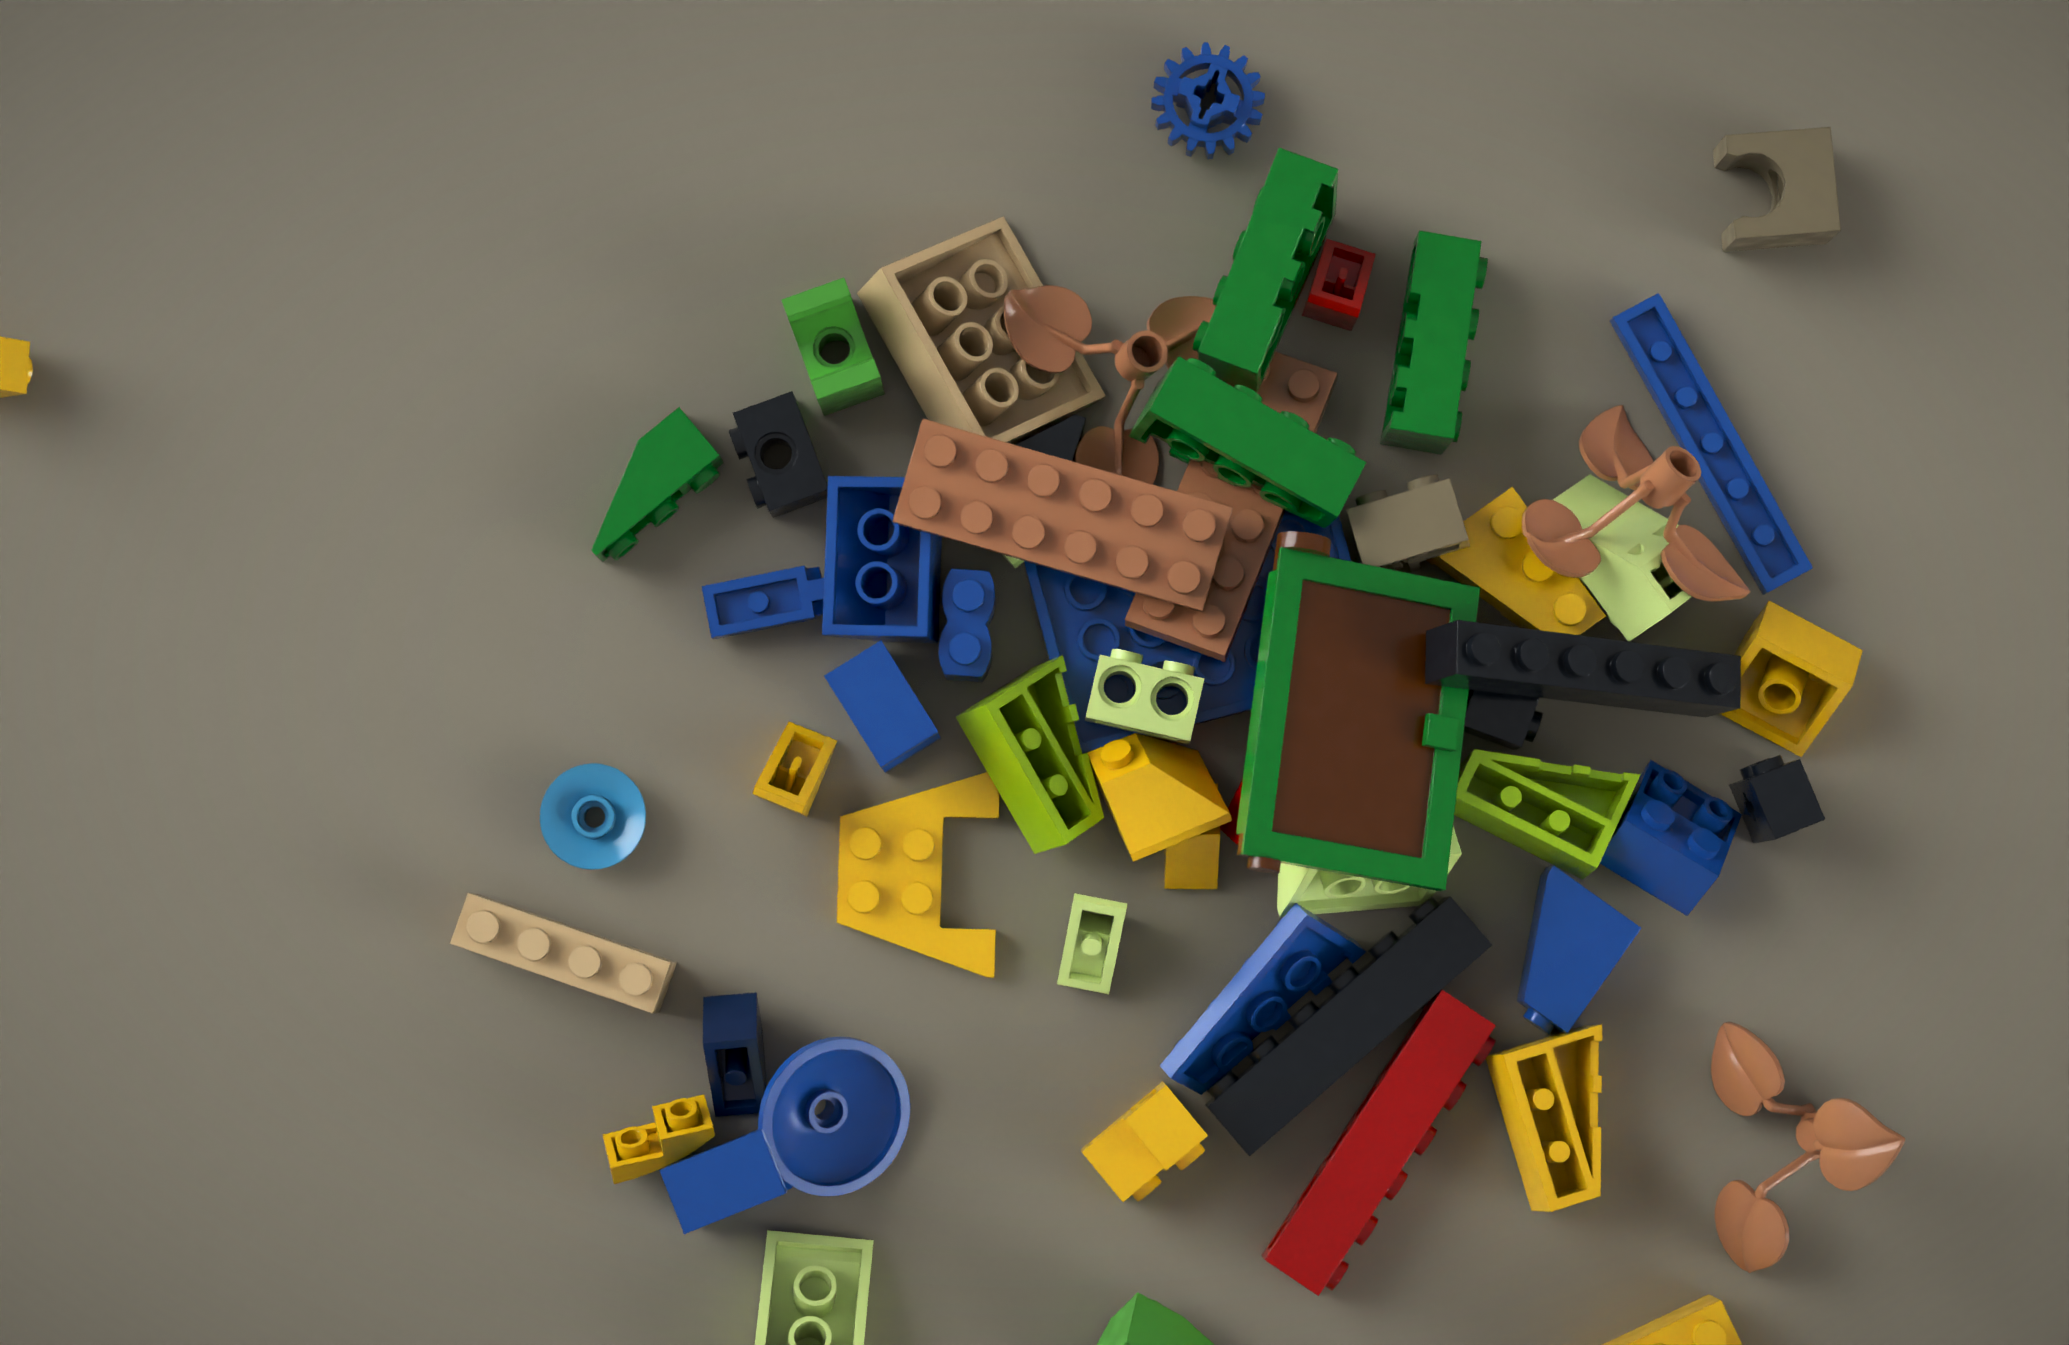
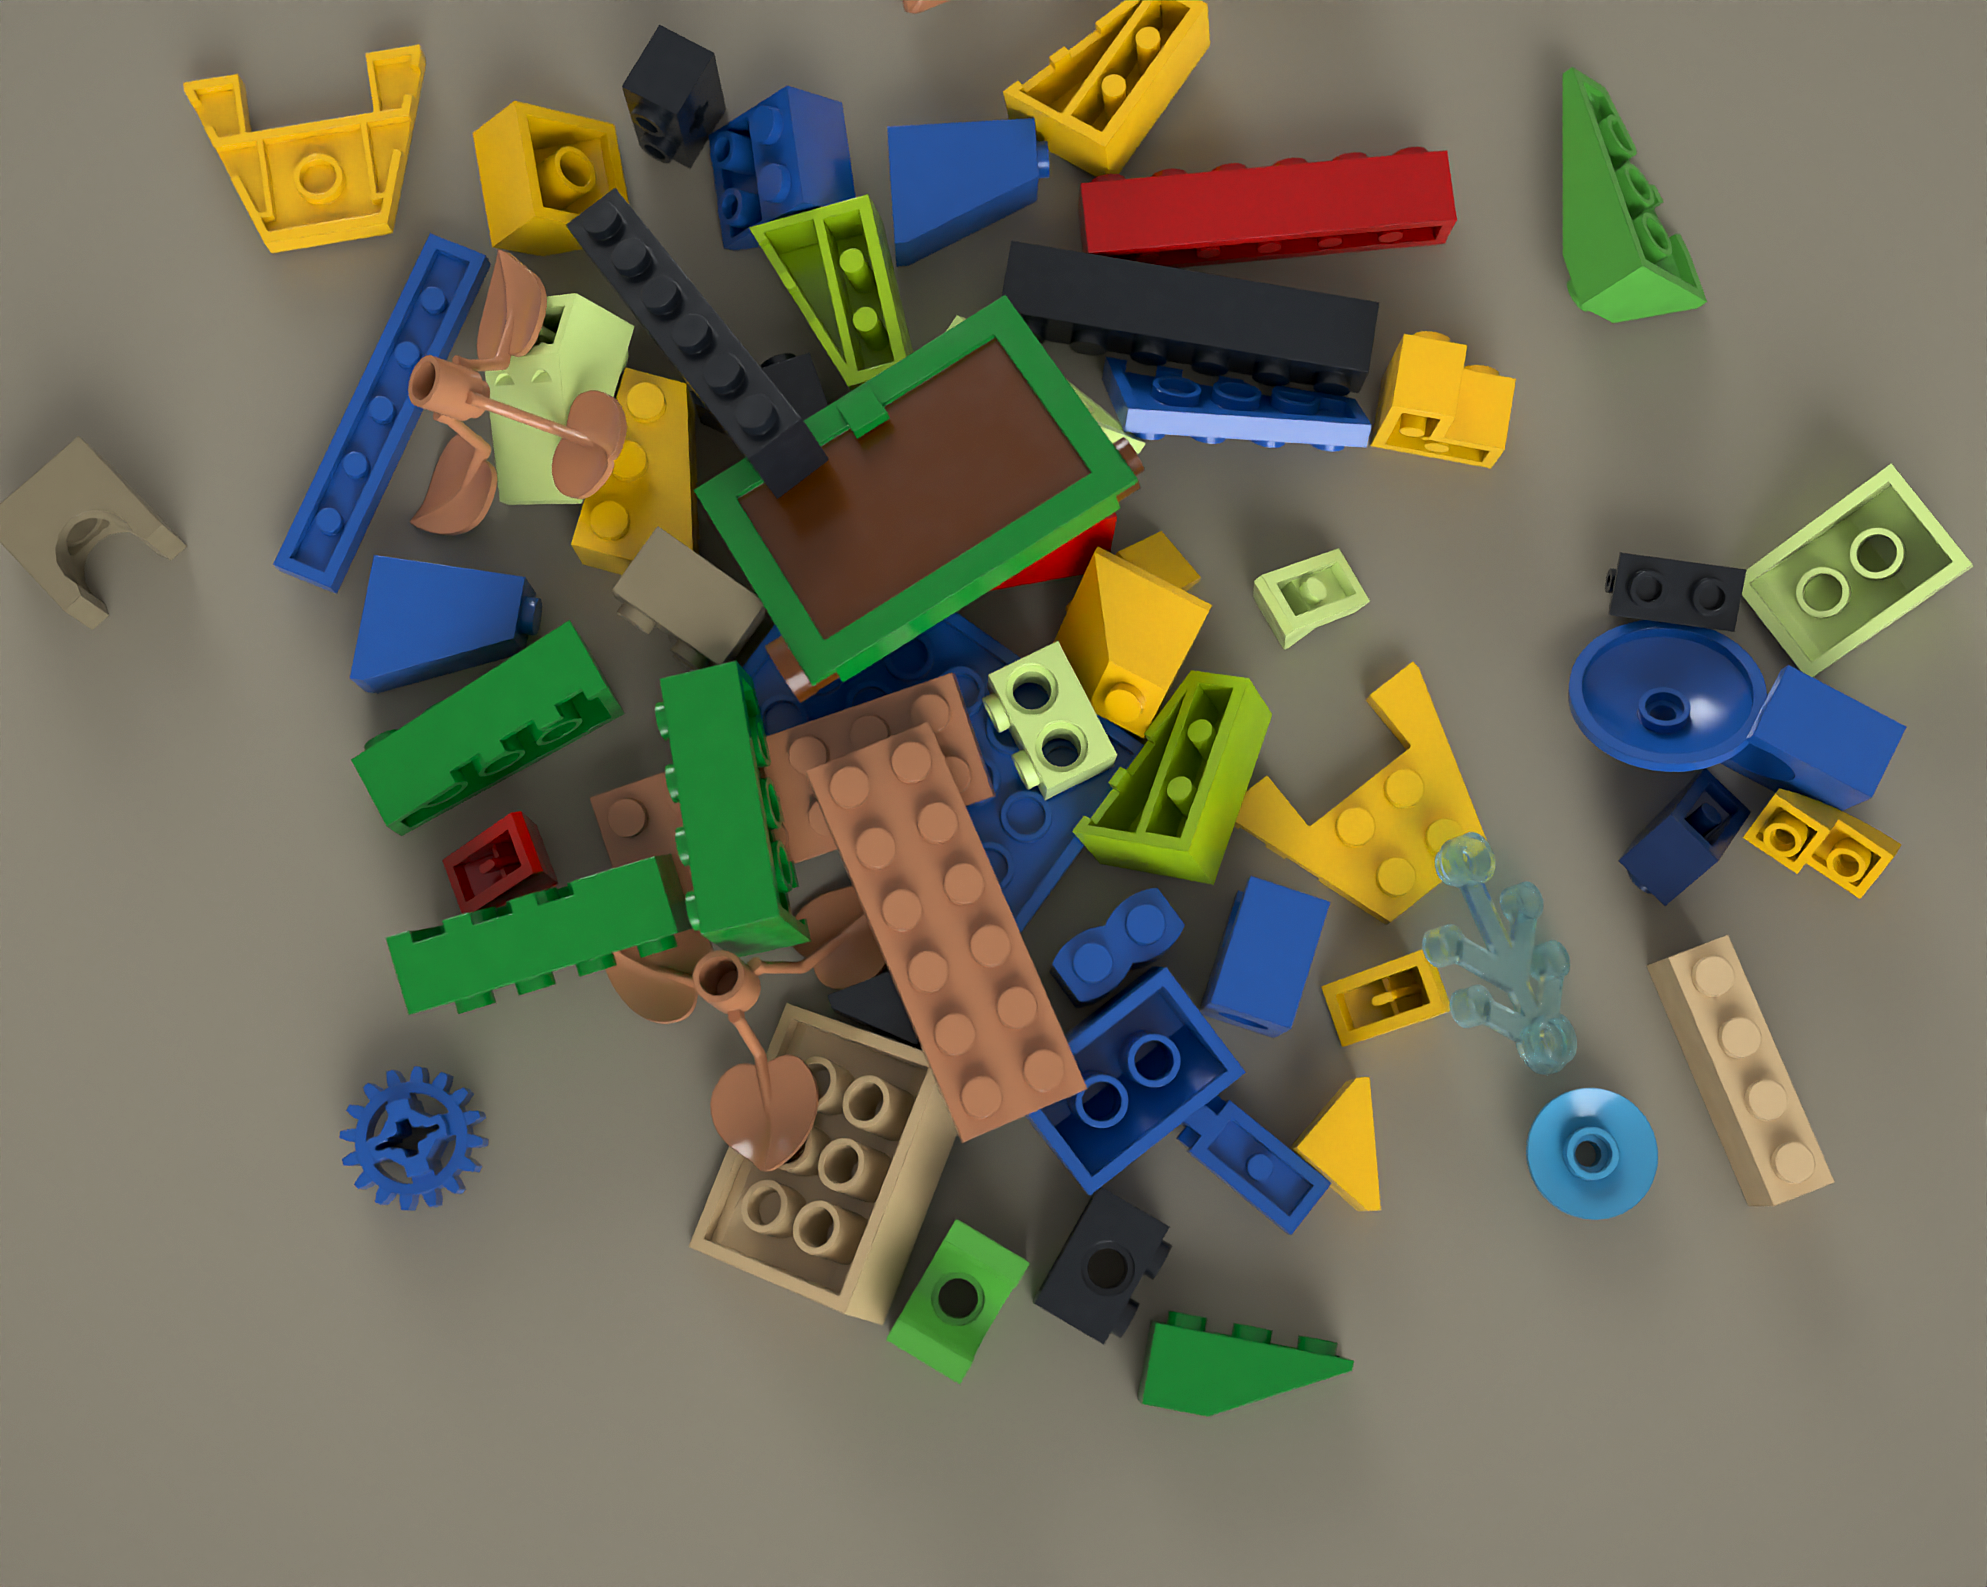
camera: 135 degrees left, 5 degrees down
(729, 662) = (1343, 1145): none -> yellow slope
(752, 862) = (1539, 1029): none -> clear light blue plant
(895, 1187) = (1675, 591): none -> black hinge
(1535, 369) = (438, 621): none -> blue slope
(1914, 530) = (322, 176): none -> yellow wing

